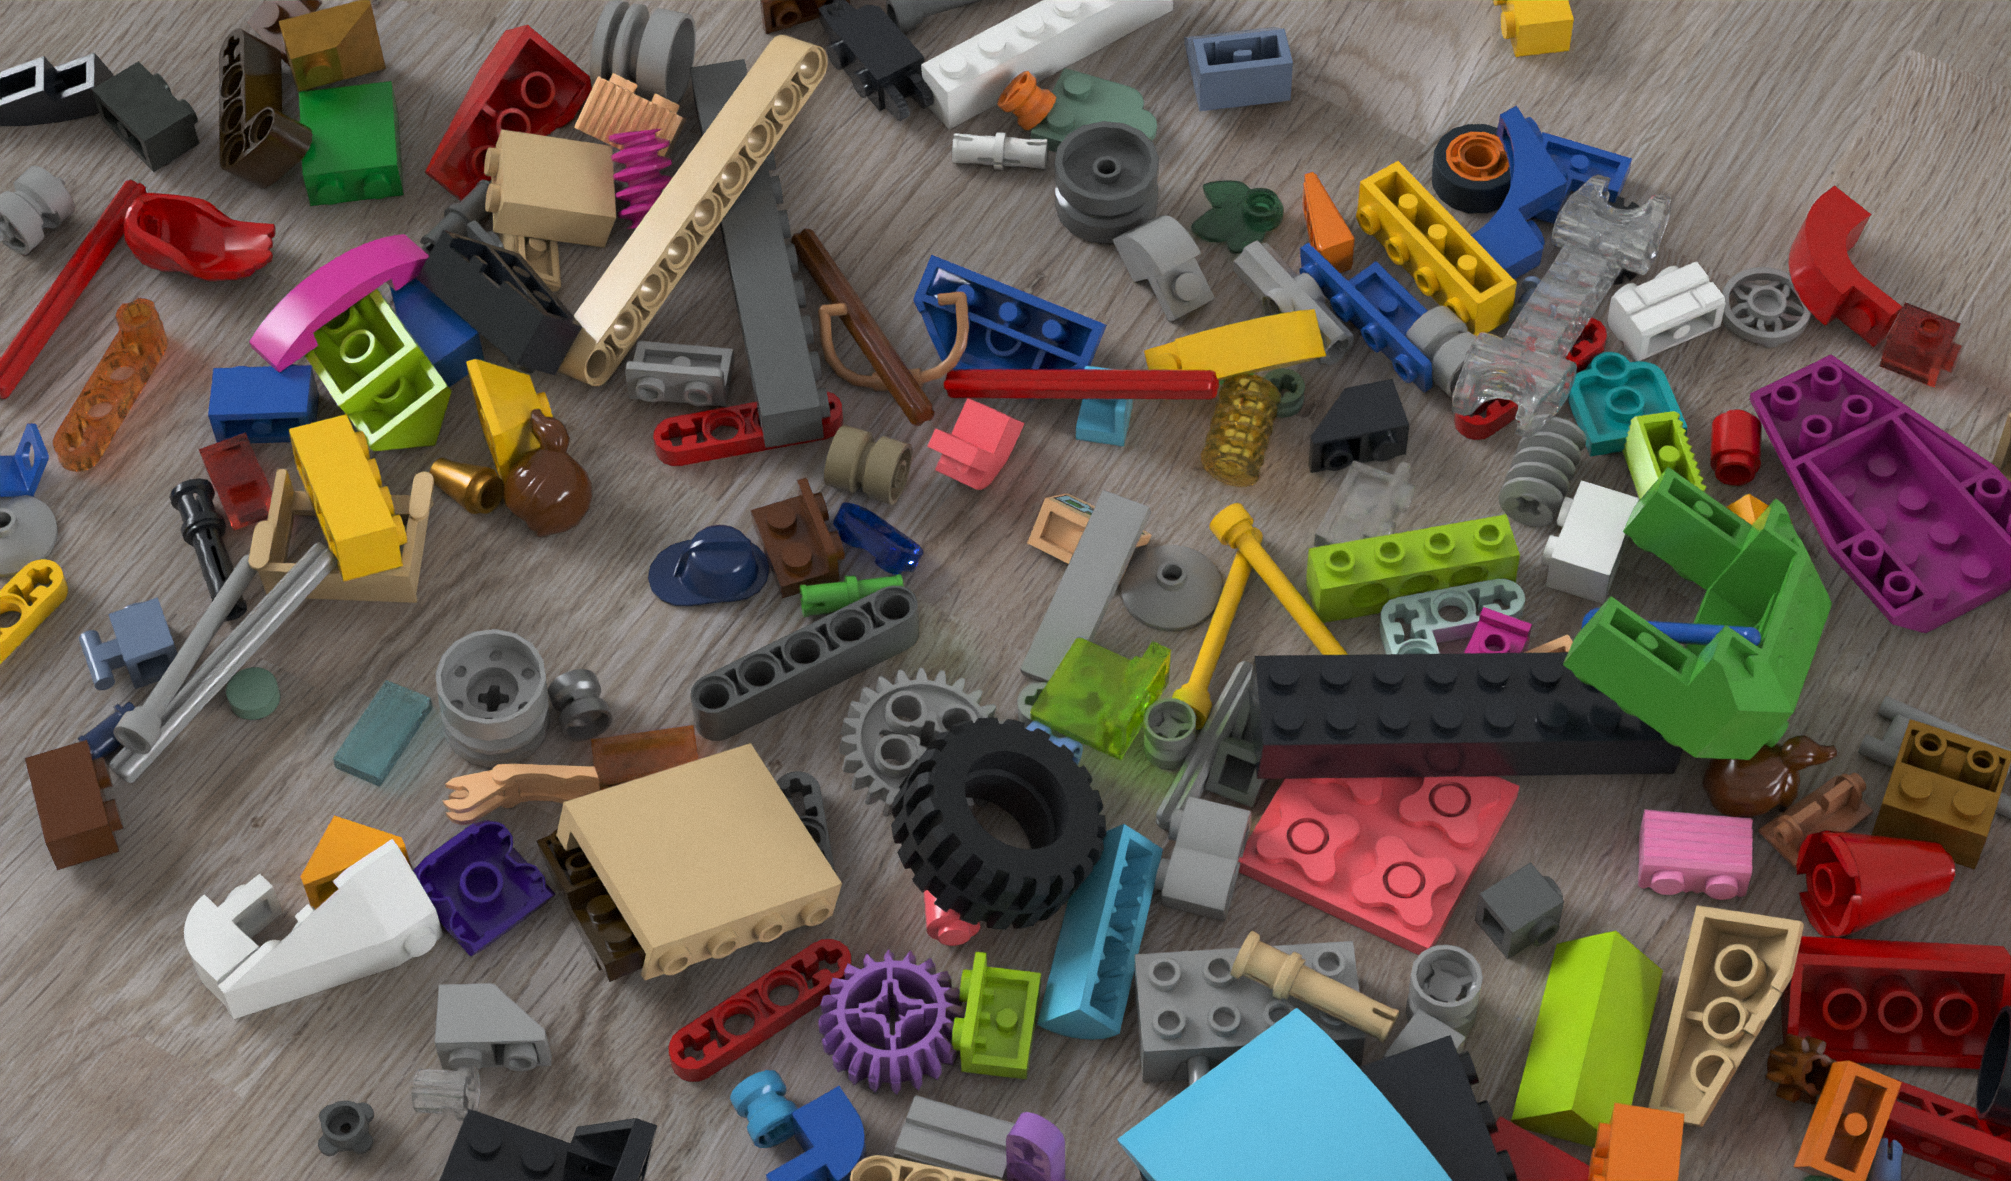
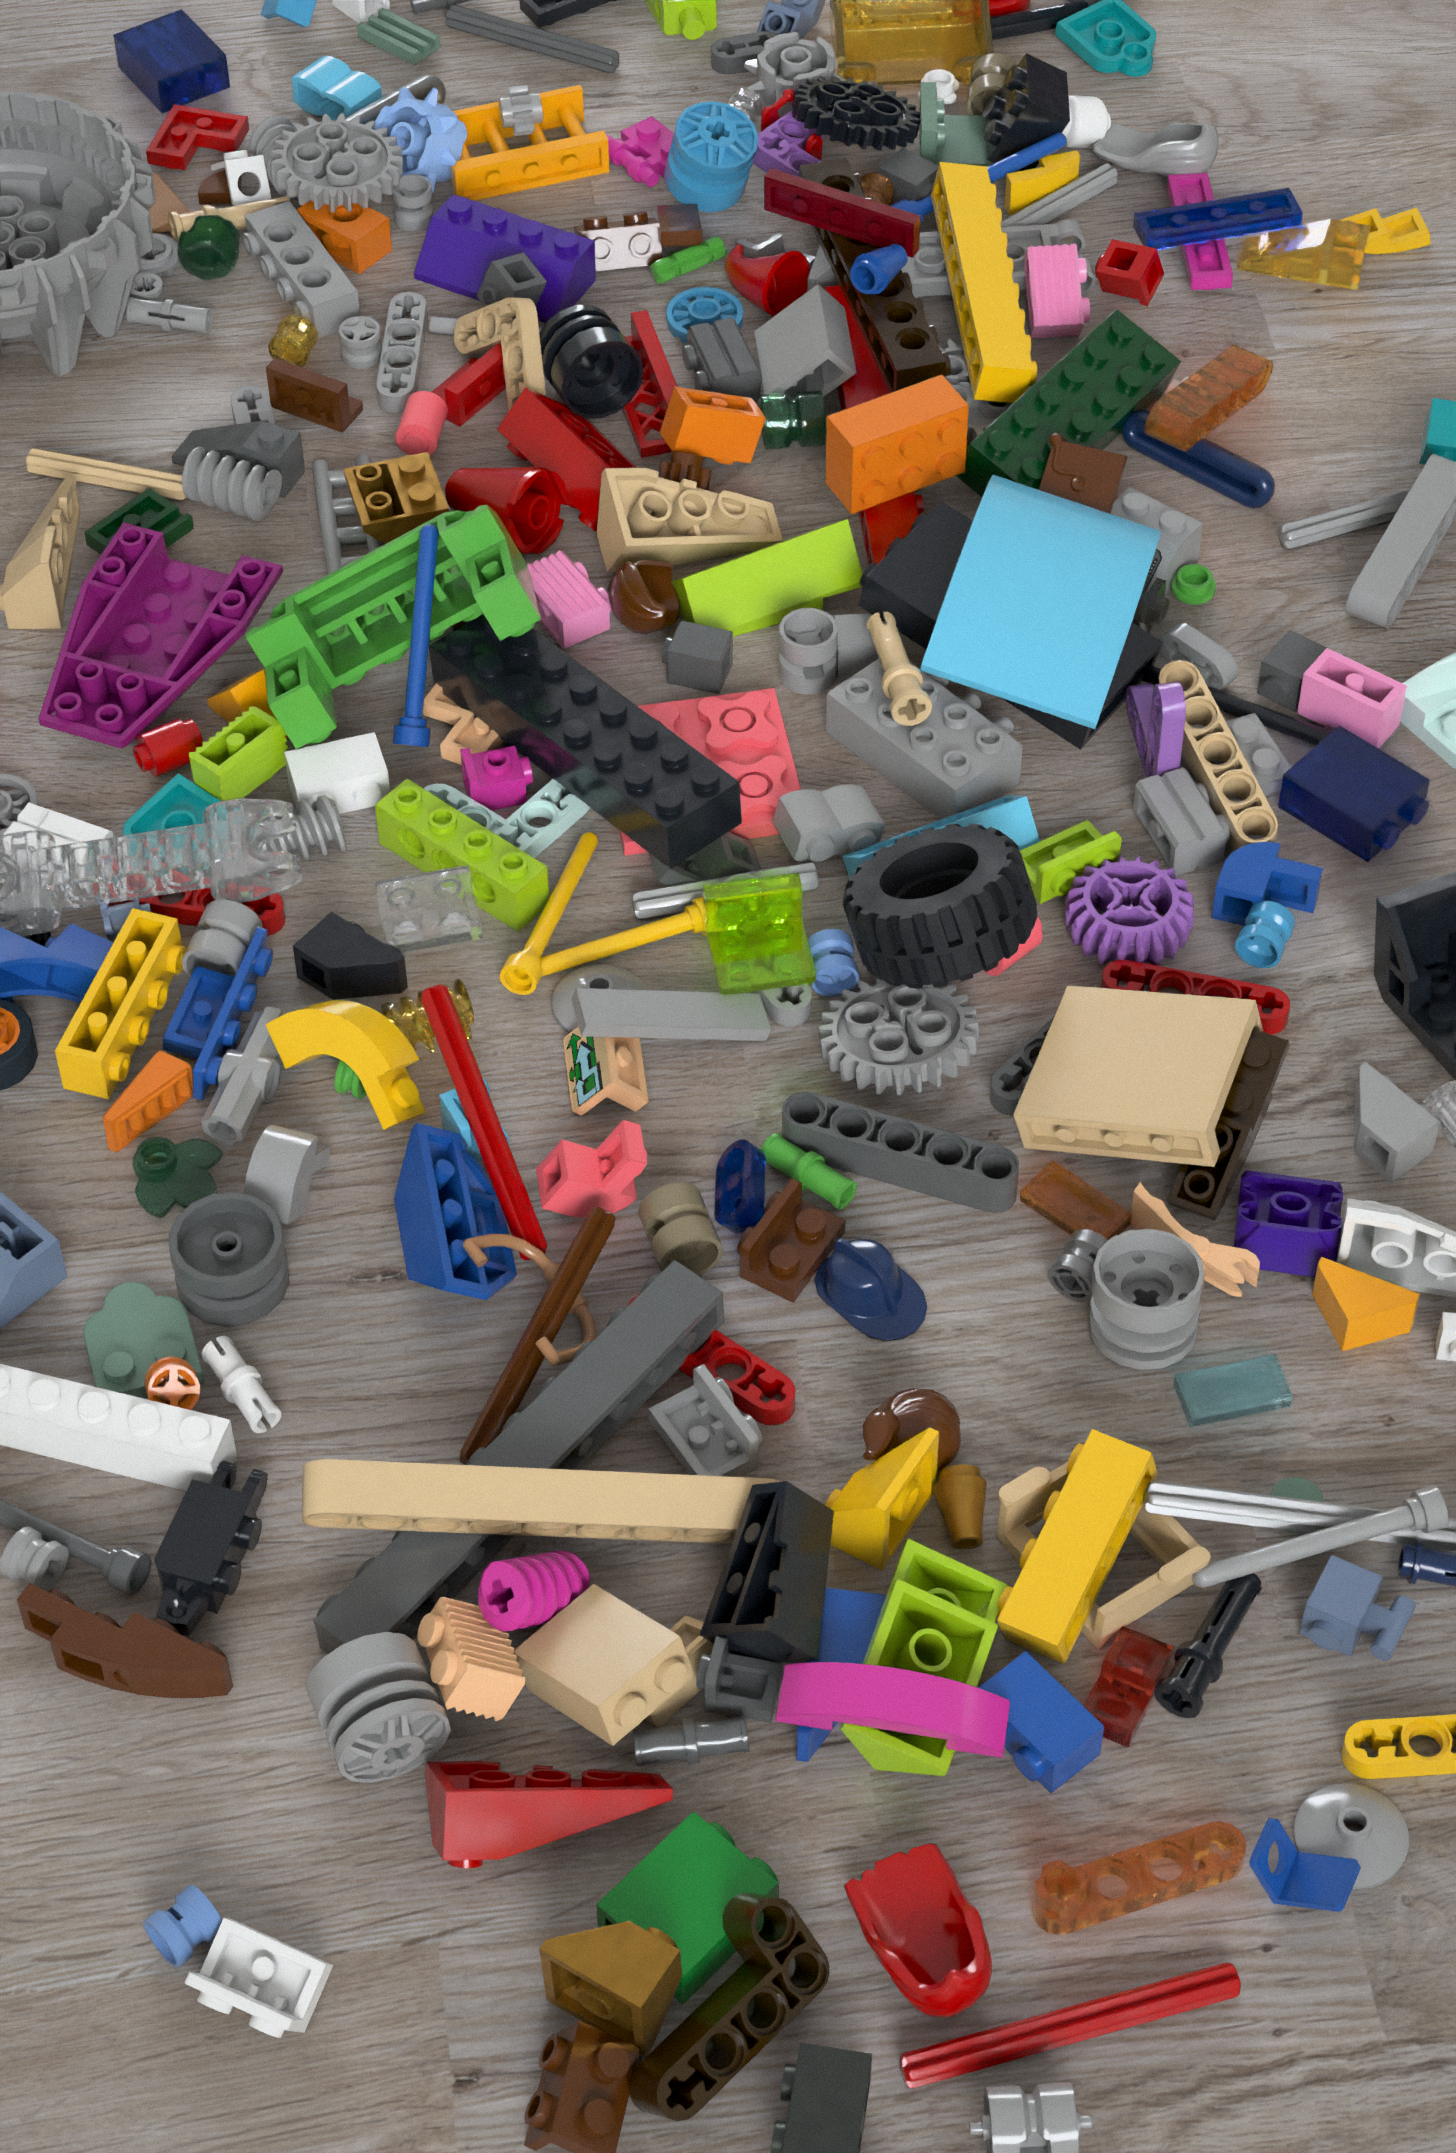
camera: 130 degrees left, 5 degrees down
(1638, 904) = (644, 596): none -> reddish brown hair

